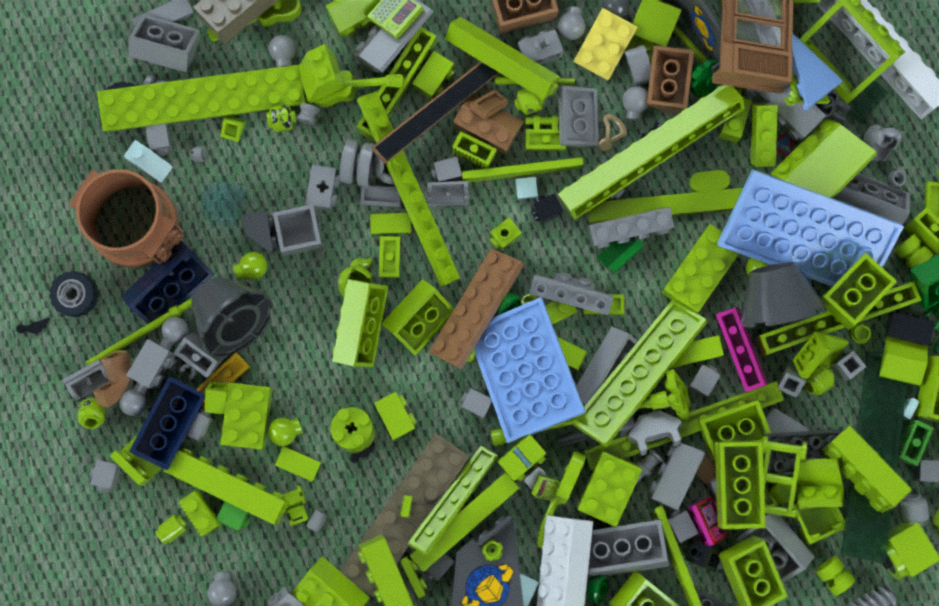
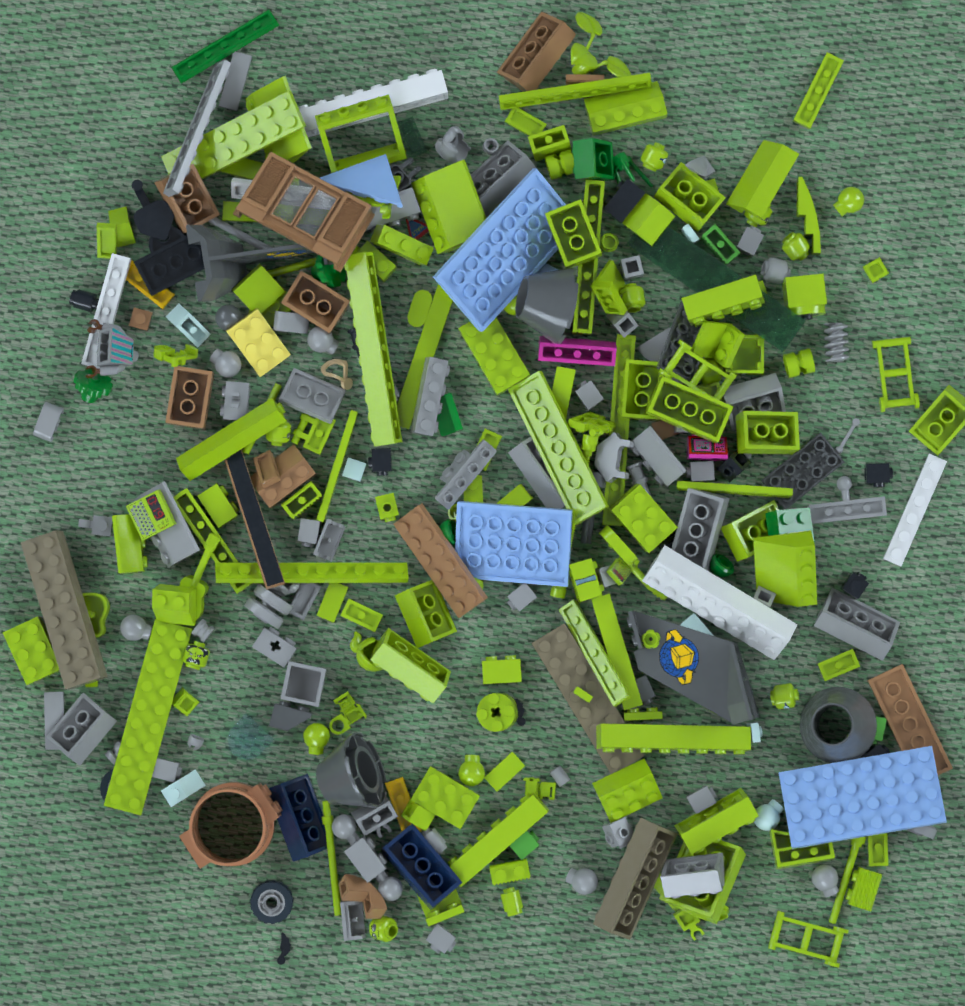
camera: 65 degrees left, 5 degrees up
(290, 287) = (350, 712): none -> lime piece

